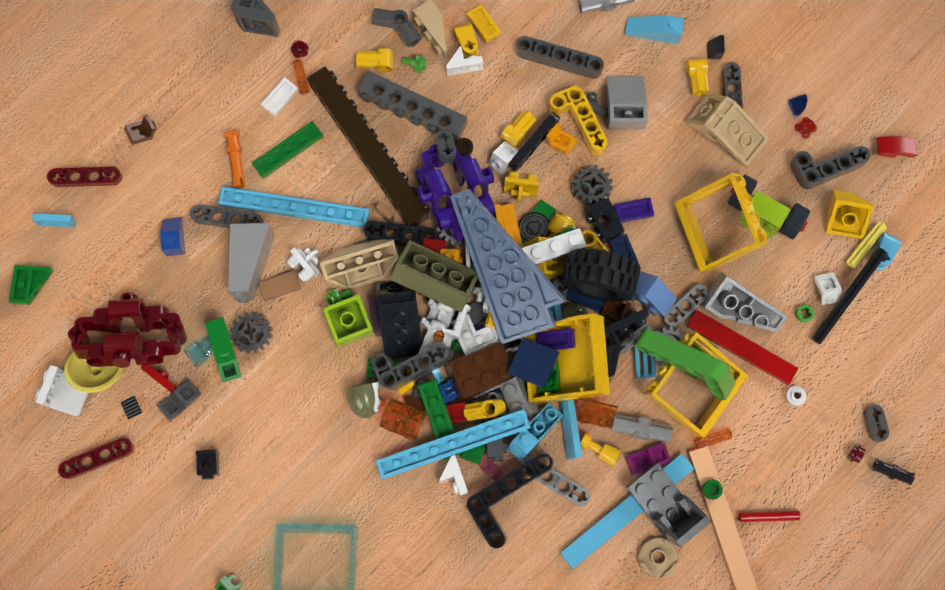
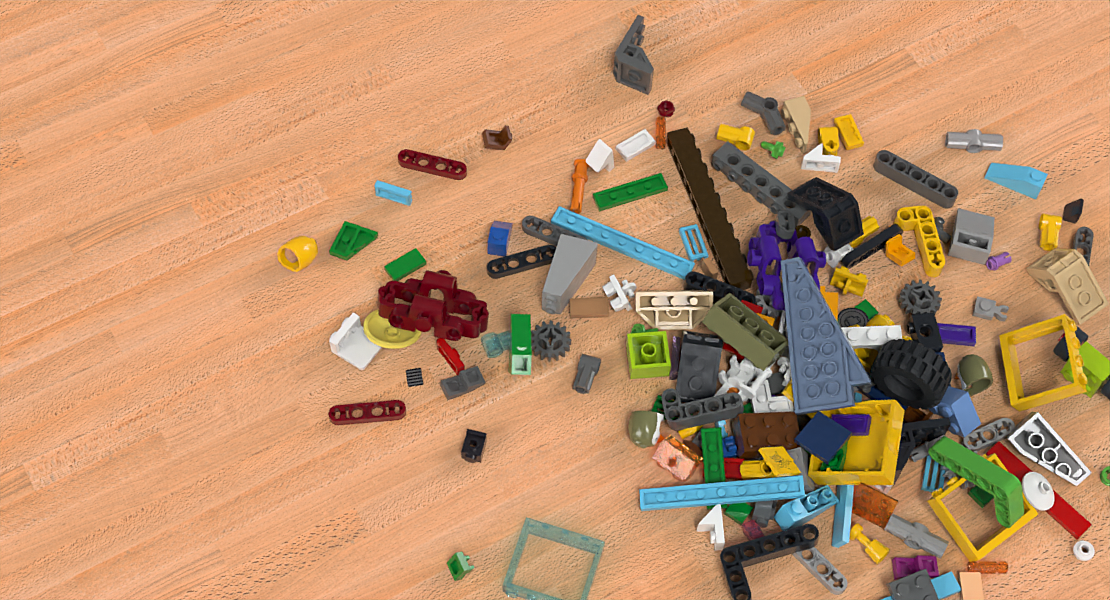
camera: 15 degrees right, 15 degrees down
(88, 293) = (405, 265): none -> green tile
(200, 253) = (523, 265): none -> black beam
(247, 125) = (601, 157): none -> white slope
(295, 350) = (587, 370): none -> dark grey piece
(370, 199) = (698, 256): none -> medium azure tile
(486, 119) = (833, 211): none -> black bracket
(498, 401) = (779, 461): none -> yellow piece
(653, 125) = (994, 263): none -> medium lavender pin
(656, 175) = (986, 309): none -> light grey plate
(659, 250) = (975, 372): none -> olive piece
(743, 352) = (1037, 491): none -> white dish

